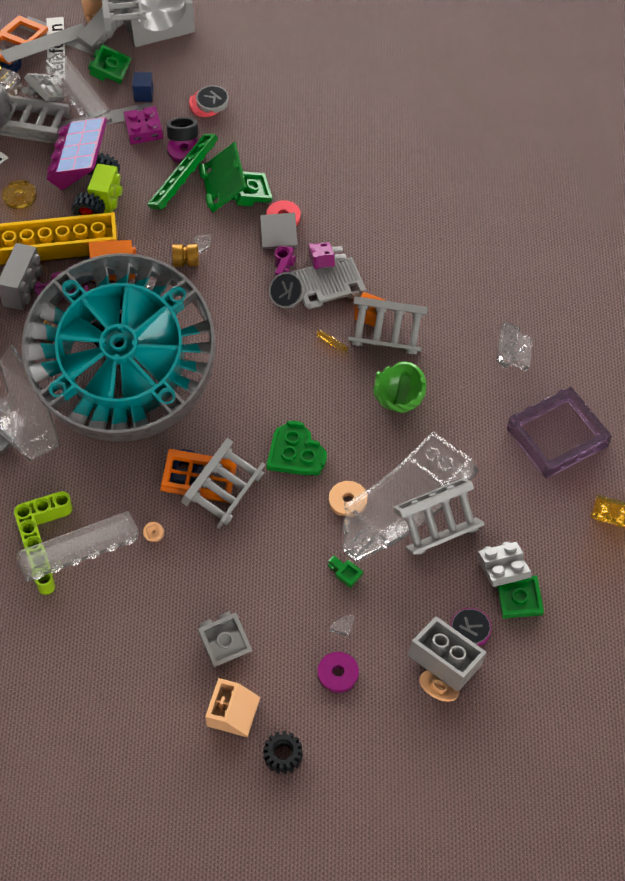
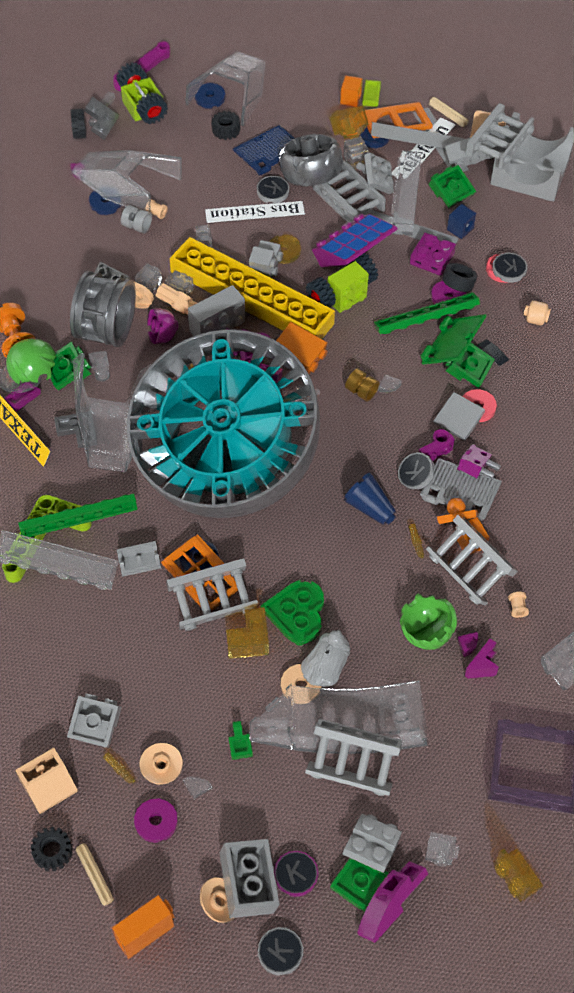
camera: 40 degrees right, 0 degrees up
(17, 207) = (266, 258): none -> light grey brick
(49, 10) = (448, 112): none -> tan axle
(67, 496) = (77, 516): none -> green plate
(139, 499) = (138, 558): none -> light grey hinge
(153, 532) = (126, 592): light nougat tile -> none
(258, 169) = (492, 350): none -> black sticker
(264, 120) = (537, 313): none -> light nougat head
(274, 658) = (119, 768): none -> clear yellow piece
(275, 333) = (371, 500): none -> dark blue cone
(283, 492) = (249, 640): none -> clear yellow brick
(300, 622) = (161, 754): none -> light nougat dish
(331, 744) = (94, 874): none -> tan axle
(344, 298) = (456, 507): none -> orange tile
(351, 467) = (326, 659): none -> light grey hair
(407, 745) = (144, 926): none -> orange brick
(435, 385) = (468, 643): none -> magenta tile
(445, 333) = (518, 604): none -> light nougat bush
(460, 391) = (482, 664): none -> magenta slope
(510, 686) = (280, 951): none -> black tile
(550, 533) = (441, 849): none -> clear brick
(550, 591) = (387, 900): none -> magenta slope

